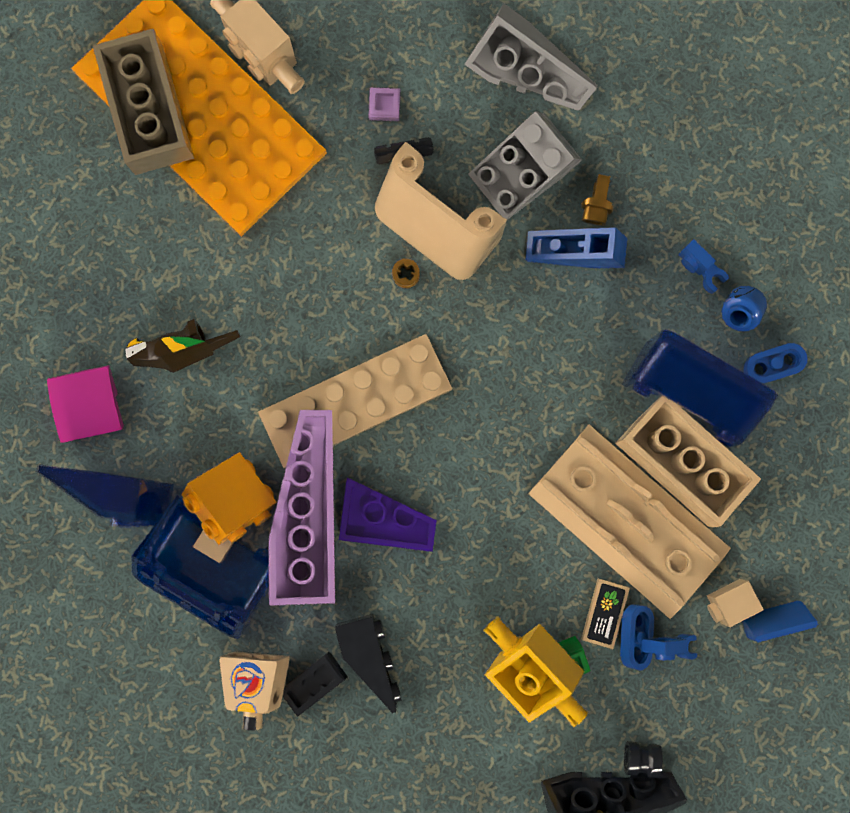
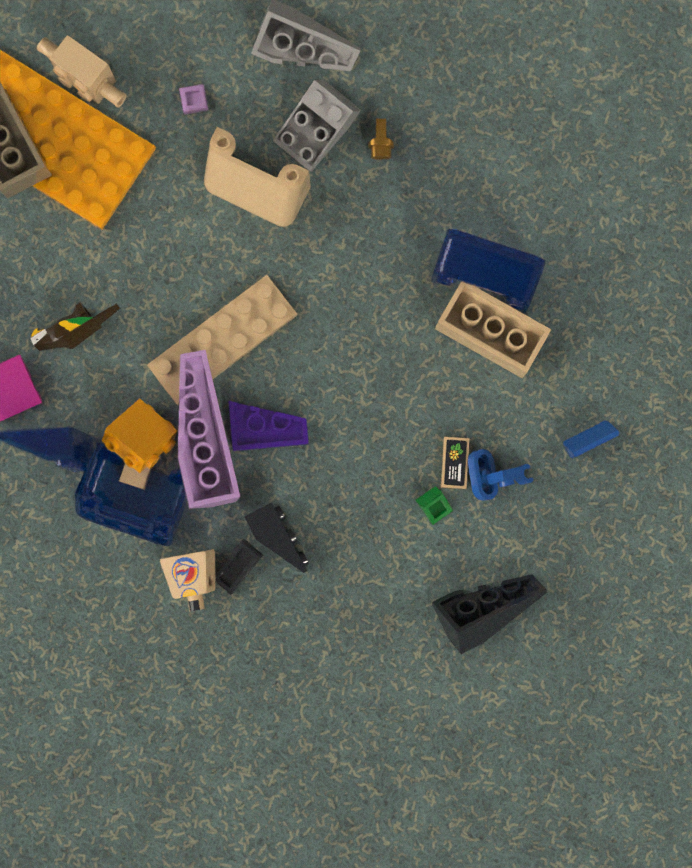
camera: 10 degrees left, 0 degrees up
(384, 154) = (201, 139): black axle -> none
(407, 264) = (240, 223): pearl gold bush -> none
(535, 673) = (407, 517): yellow brick -> none
(578, 247) = (372, 180): blue slope -> none
(629, 521) = (458, 387): tan hinge -> none
(643, 759) = (507, 567): black wheel -> none
(698, 260) = (470, 170): blue plate -> none
(734, 603) = (552, 432): tan brick -> none
(744, 308) = (513, 200): blue head -> none
(773, 363) = (546, 238): blue plate -> none

